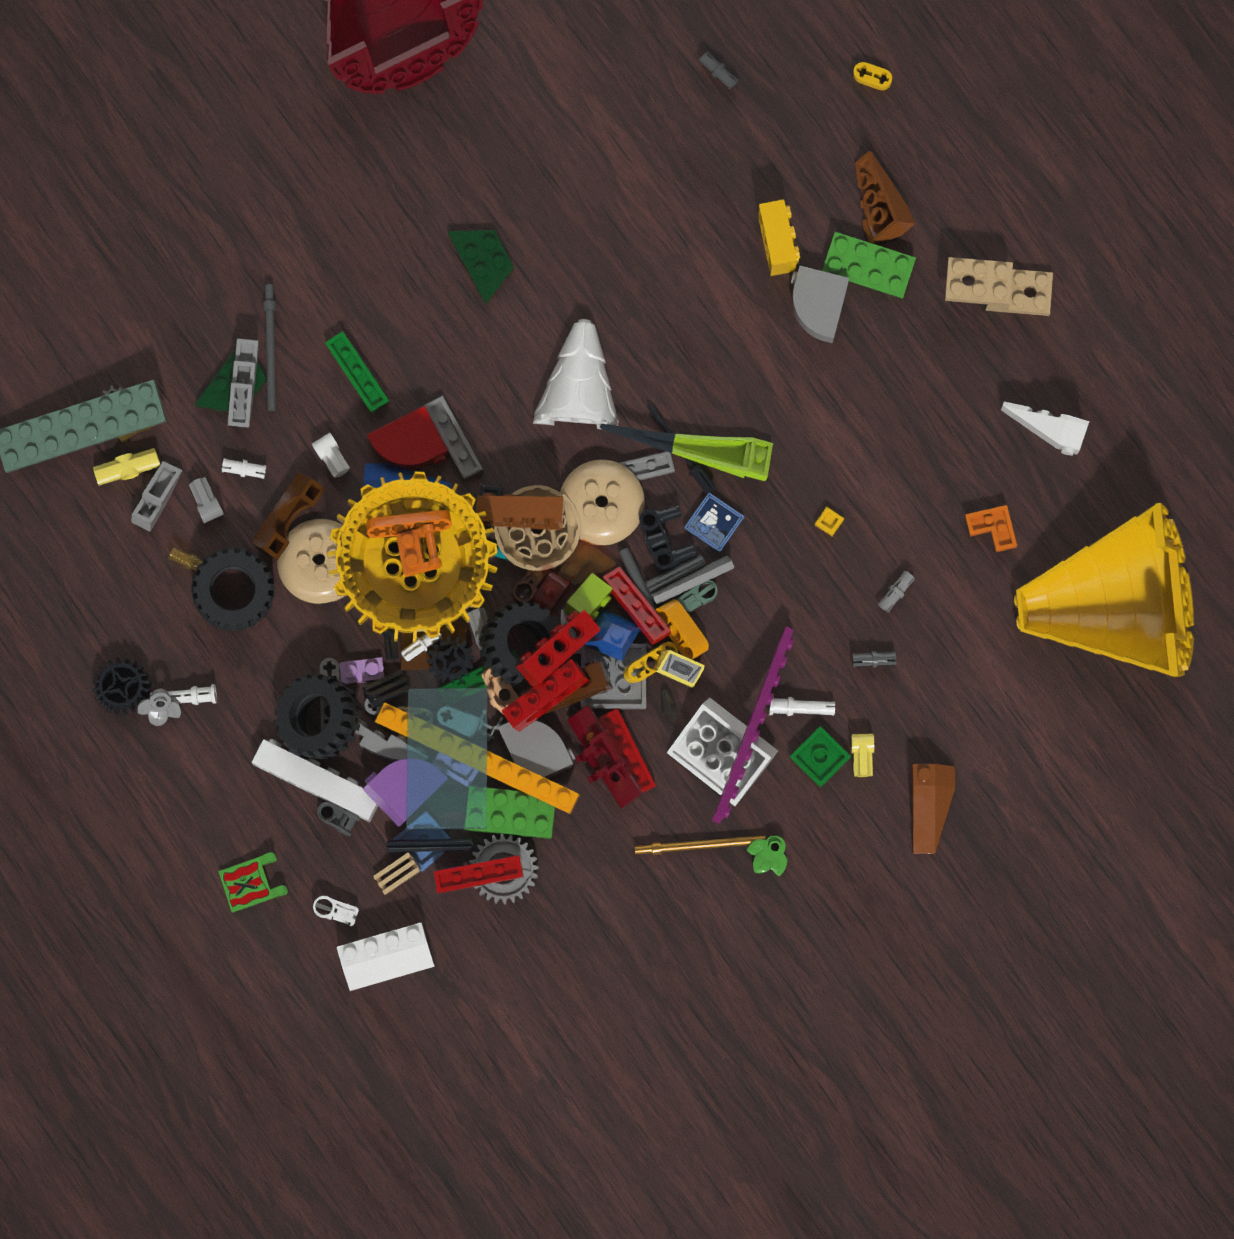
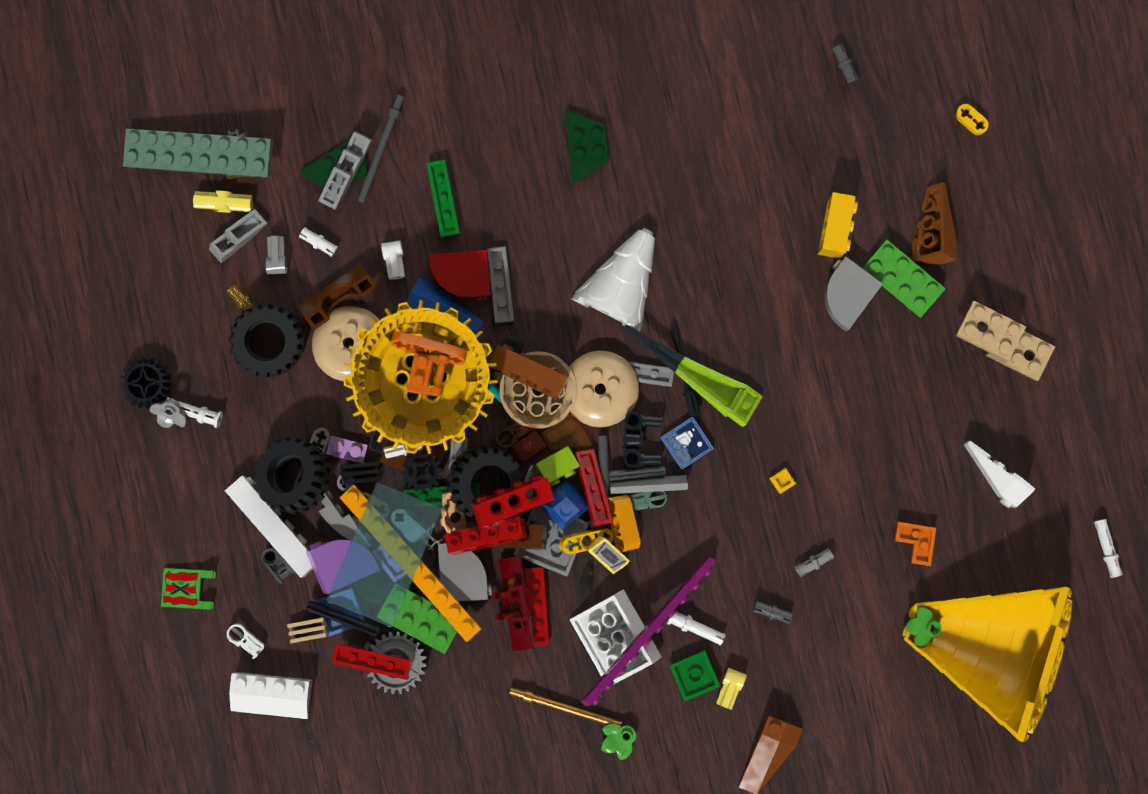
camera: 25 degrees right, 5 degrees up
(1032, 611) = (921, 626): none -> bright green plate
(1188, 451) = (1108, 548): none -> white pin

